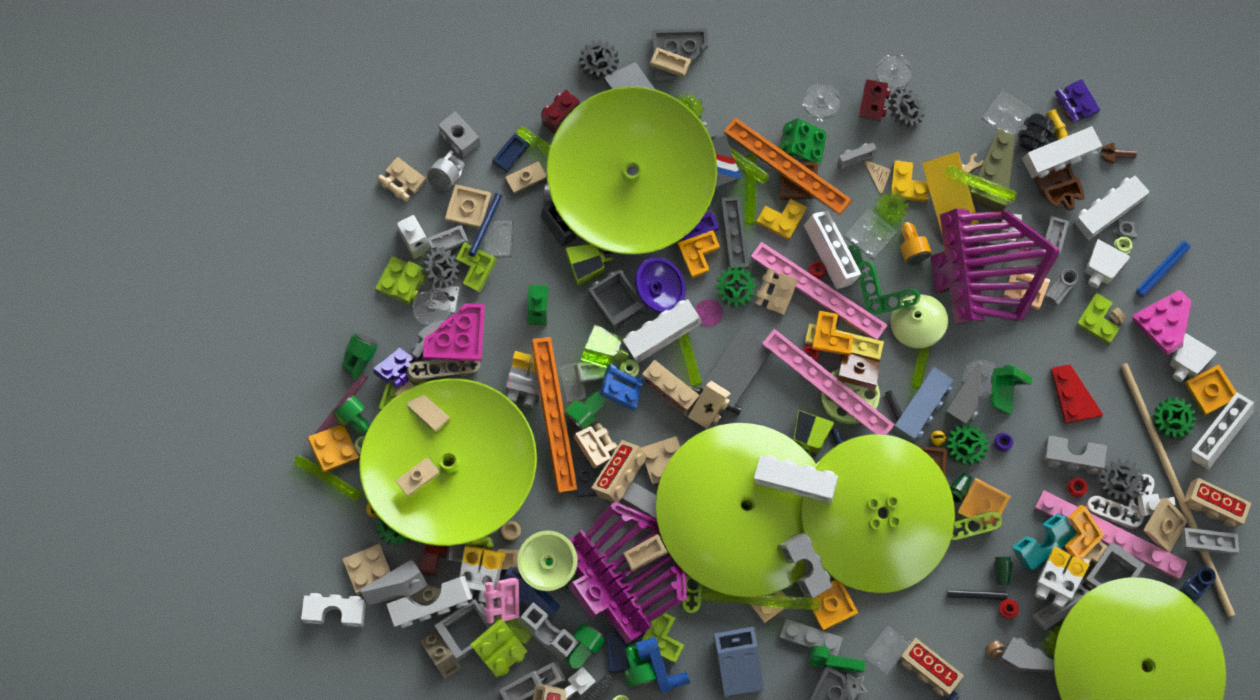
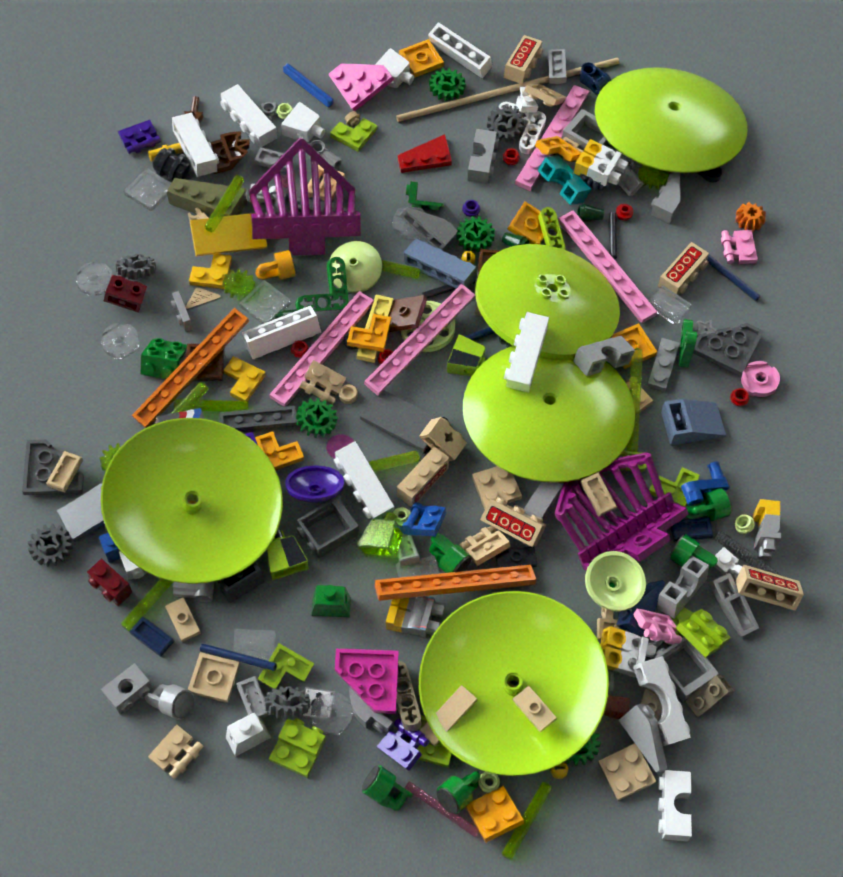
camera: 90 degrees left, 10 degrees down
(767, 318) = (348, 394): none -> tan tile
(933, 584) = (607, 266): none -> bright pink plate
(994, 649) = (662, 222): medium nougat plate -> none

